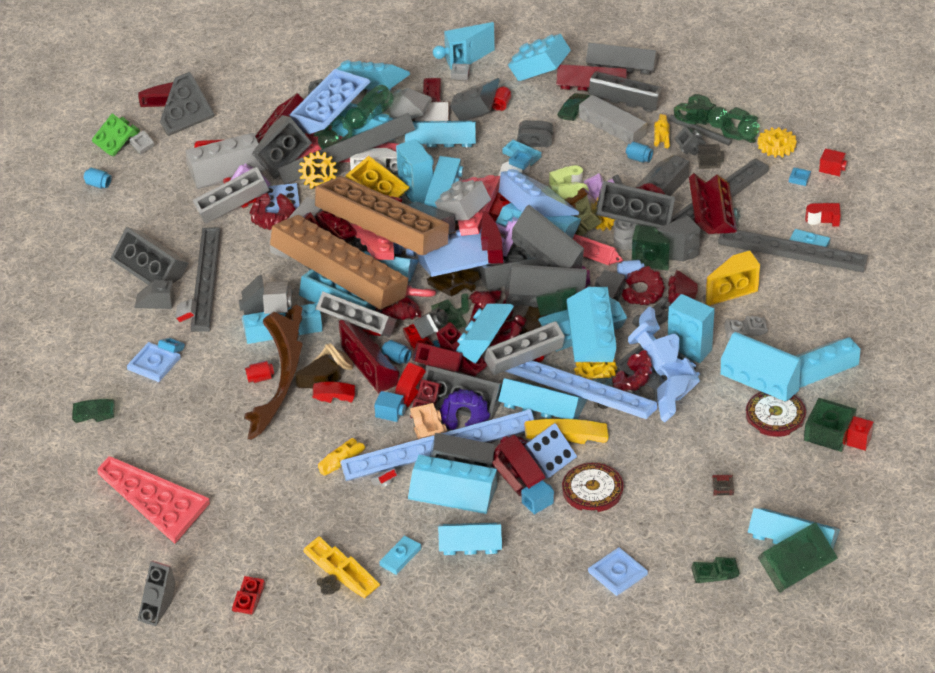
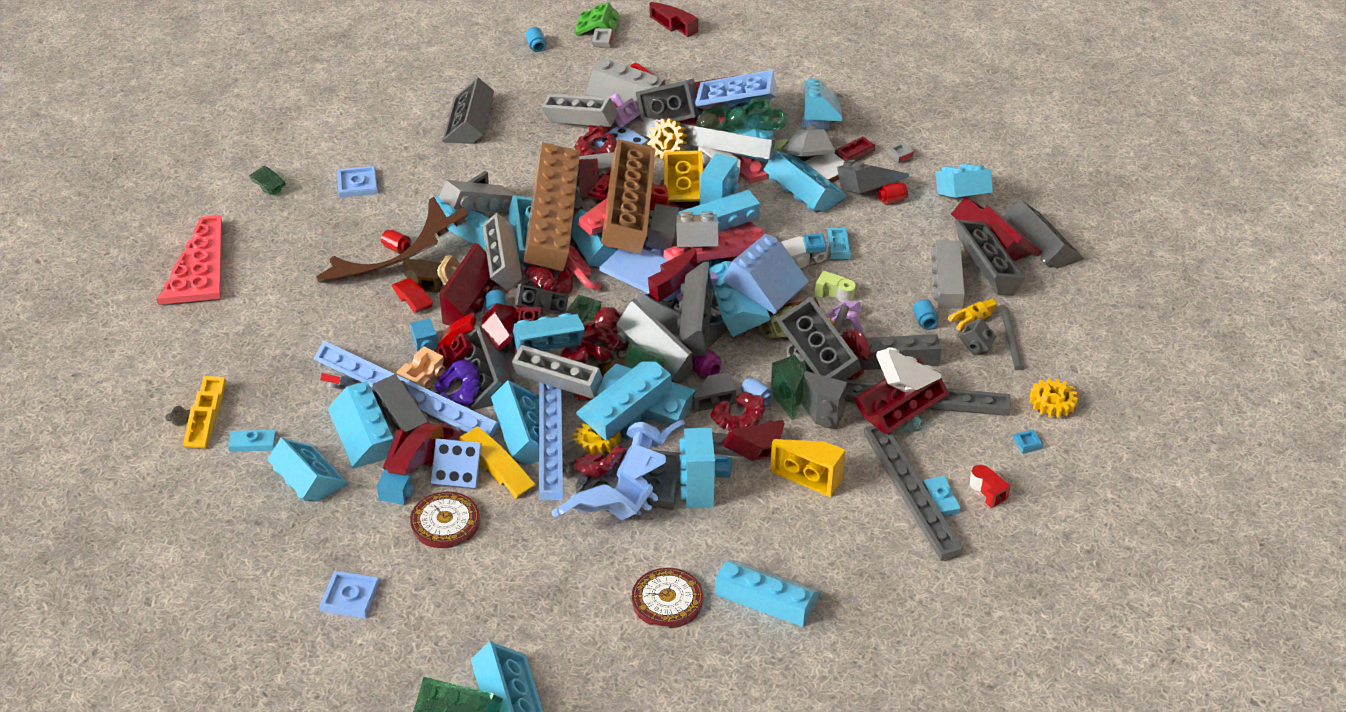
camera: 50 degrees right, 0 degrees up
(156, 295) = (431, 141): dark grey slope -> none
(157, 593) = (81, 322): dark grey slope -> none
(171, 345) = (381, 179): dark azure tile -> none
(184, 105) = (666, 32): dark grey plate -> none
(185, 310) = (429, 163): light grey plate -> none
(206, 279) = (481, 156): dark grey tile -> none
(249, 595) = (123, 379): red slope -> none
(344, 451) = (344, 340): yellow hinge -> none
(454, 282) = (617, 291): dark brown plate -> none
(466, 44) = (931, 134): medium azure slope -> none
(535, 133) = (871, 237): dark grey brick -> none
(568, 189) = (826, 300): yellowish green leg -> none
(571, 106) = (928, 241): clear green slope -> none
(598, 251) = (757, 354): coral plate -> none
(631, 66) = (1012, 231): none -> dark red tile
(703, 185) = (905, 371): none -> white slope
(710, 156) = (975, 362): clear smoke brick -> none
(718, 117) = (1031, 329): clear green piece -> none
(721, 569) = (407, 664): clear green slope -> none
(722, 485) = (526, 609): clear smoke plate -> none
(750, 327) = (763, 512): light grey slope -> none
(761, 367) = (700, 550): medium azure slope -> none
(829, 424) = (678, 644): clear green brick -> none
(833, 162) = (1071, 452): red brick -> none
(859, 433) = (691, 675): red brick -> none

